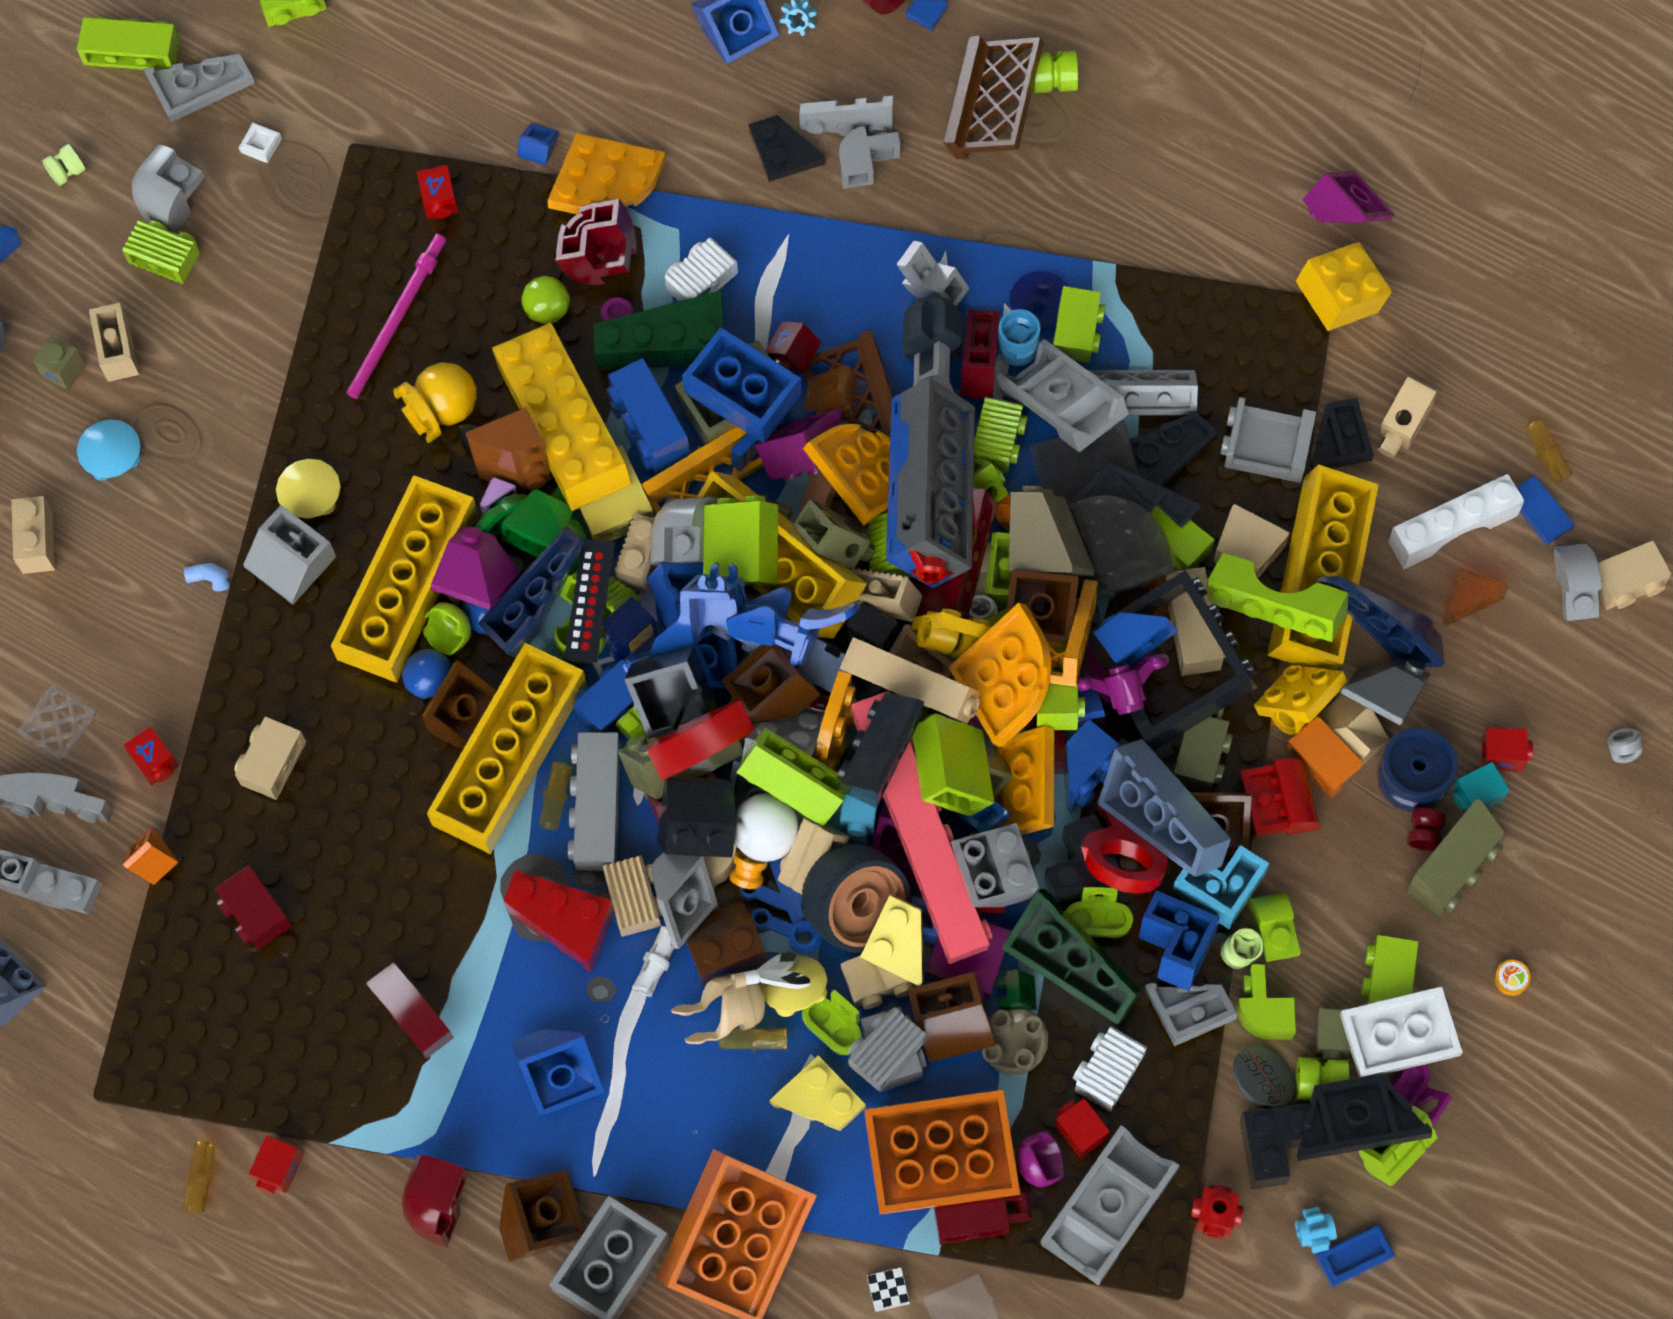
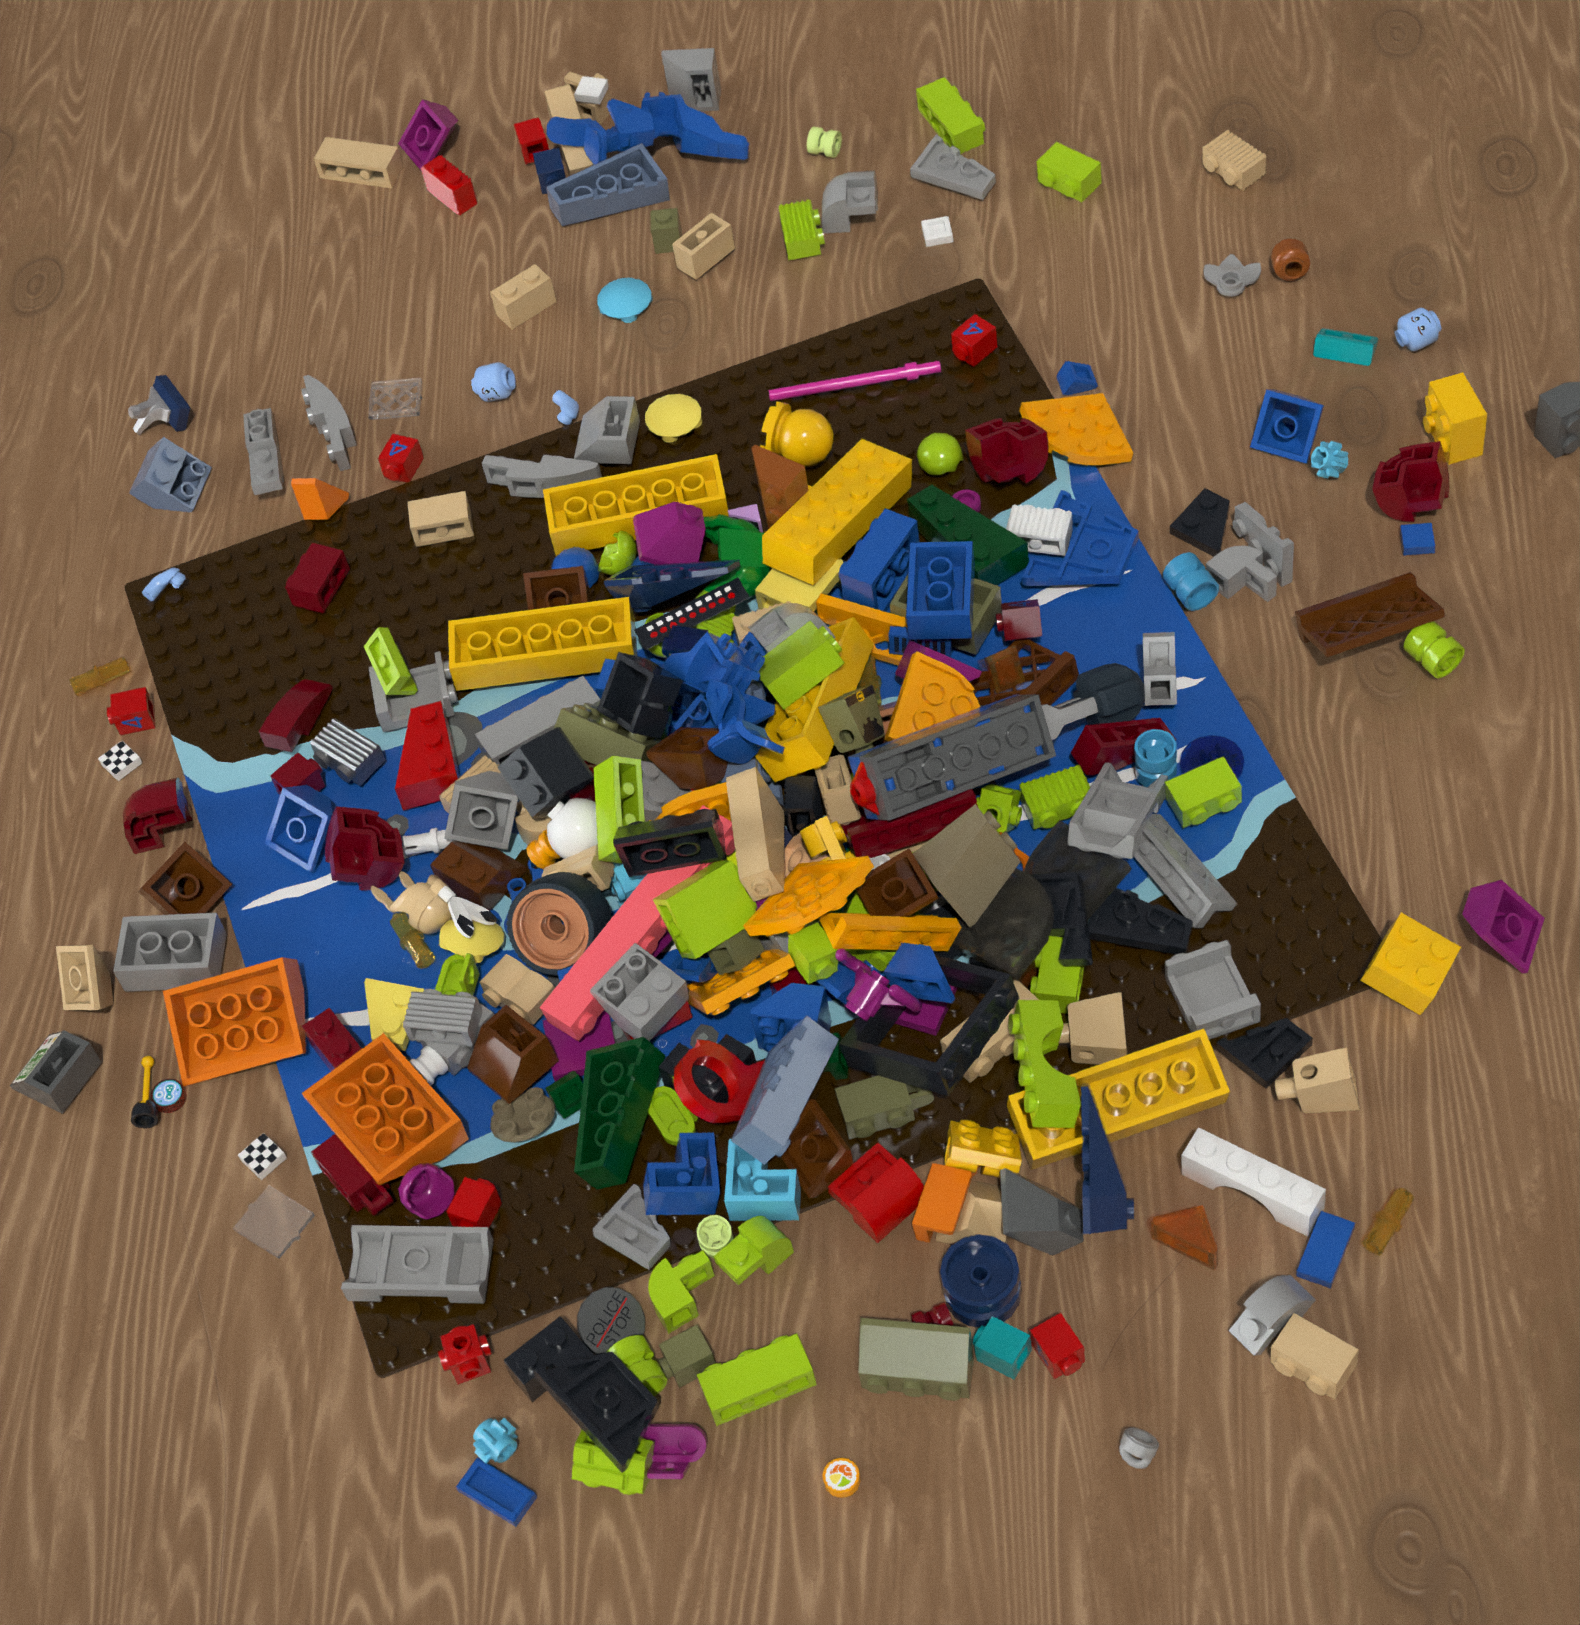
camera: 65 degrees right, 15 degrees down
(123, 621) = (493, 382): none -> light blue head
(130, 1055) = (160, 581): none -> light blue arm
(301, 633) = (530, 478): none -> light grey slope
(323, 1207) = (120, 760): none -> white tile
(433, 892) = (389, 664): none -> lime panel
(467, 892) = (432, 687): none -> light grey panel
(494, 1047) = (298, 772): none -> dark red brick
(495, 988) = (346, 752): none -> flat silver brick
(555, 796) = (522, 700): clear yellow axle -> none
(630, 1027) = (363, 848): none -> dark red brick
(700, 739) = (603, 727): red slope -> none
(758, 243) = (1095, 553): none -> blue wing
(834, 1162) = (330, 1039): none -> dark red brick
(845, 197) = (1191, 581): none -> dark azure wheel
(897, 940) = (540, 970): light yellow wing -> none
(906, 1090) = (429, 1064): none -> white wheel
(1109, 1068) = (540, 1197): white brick -> none
(1401, 1033) = (709, 1397): white plate -> none

